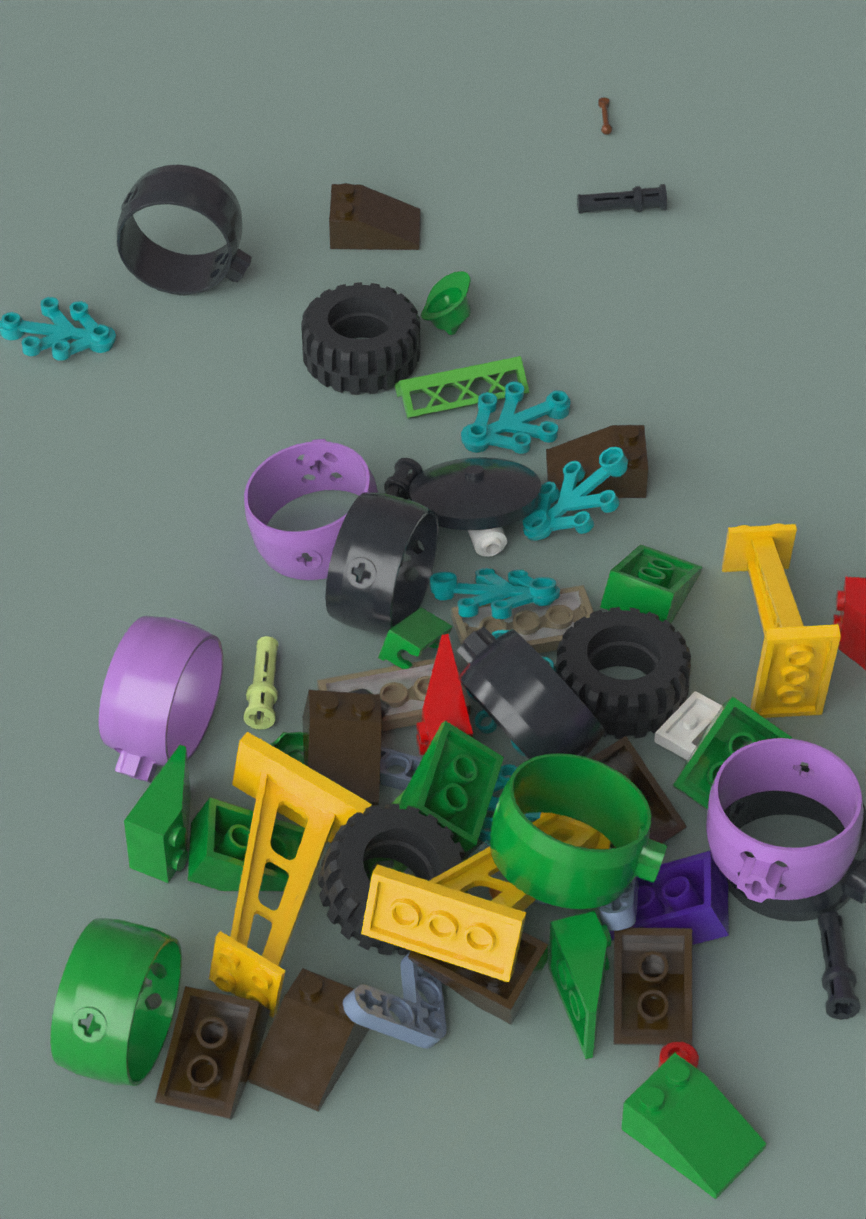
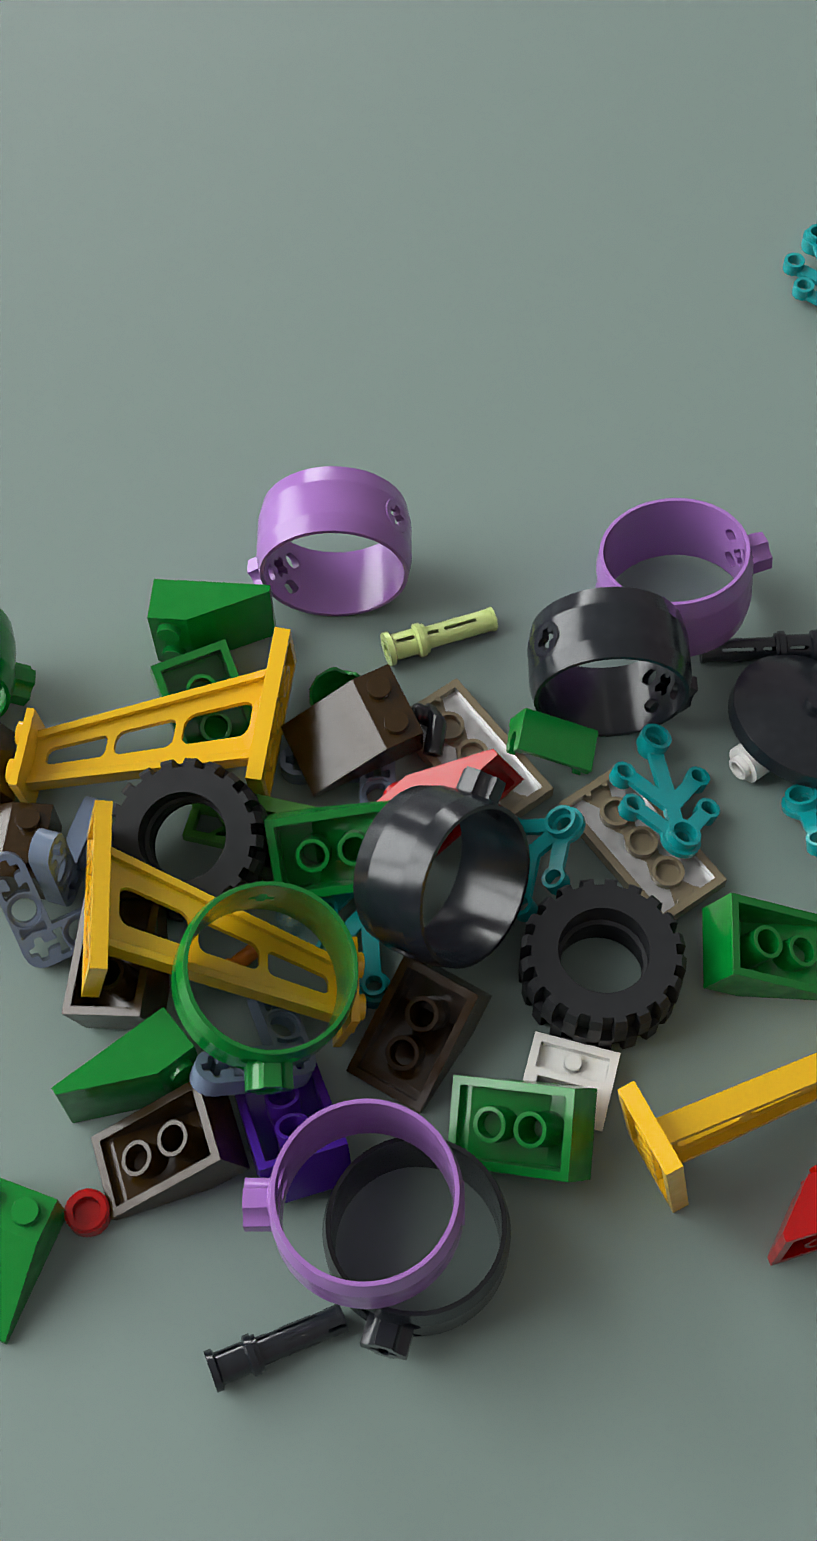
camera: 70 degrees right, 15 degrees up
(370, 965) = (61, 862): none -> sand blue beam

